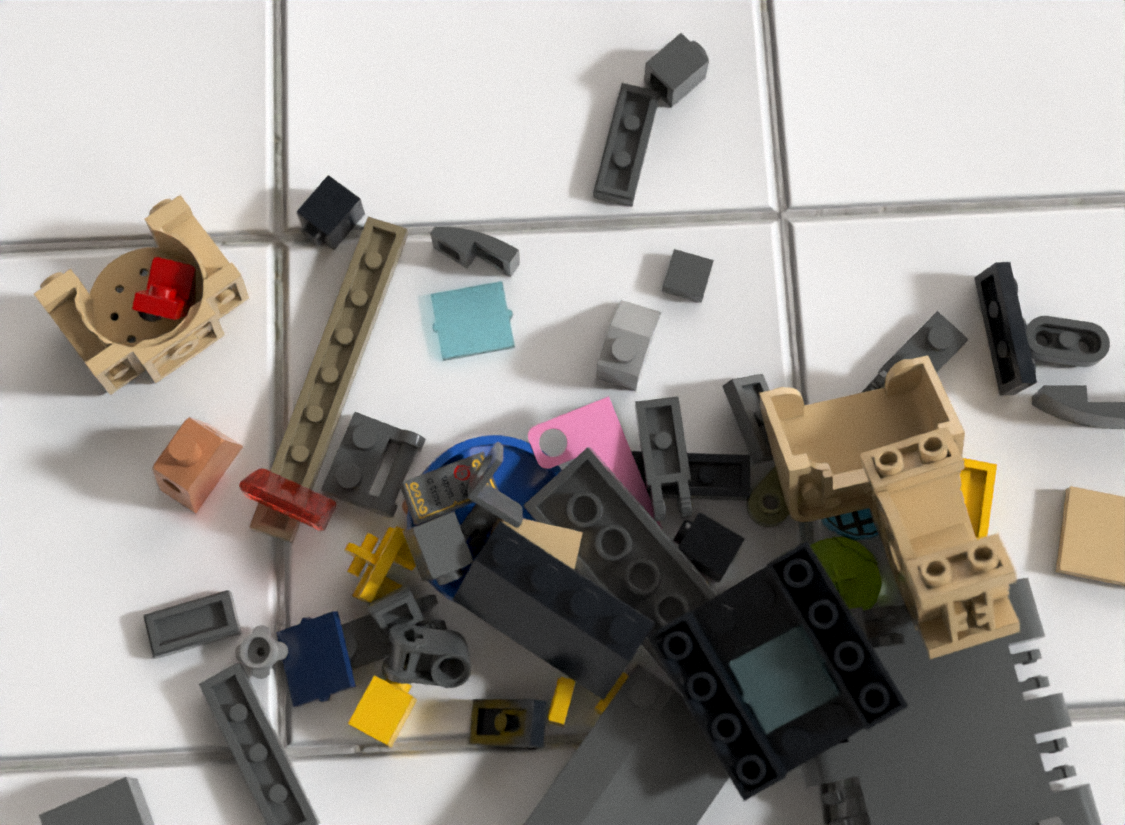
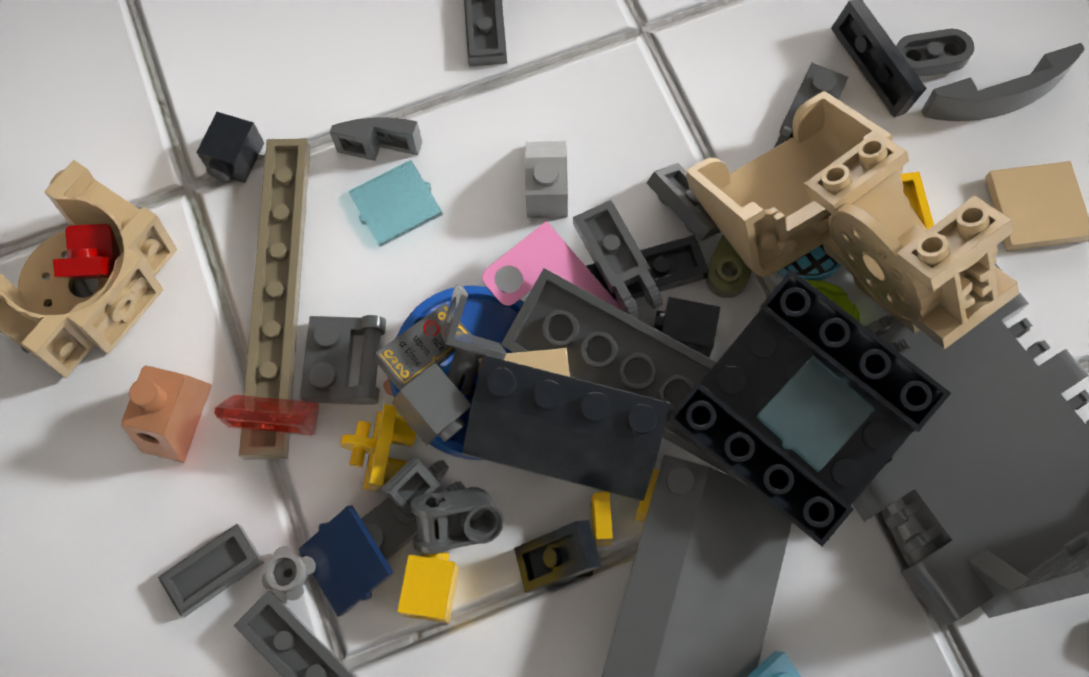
camera: 15 degrees left, 5 degrees down
(687, 275) = (578, 102): dark grey tile -> none

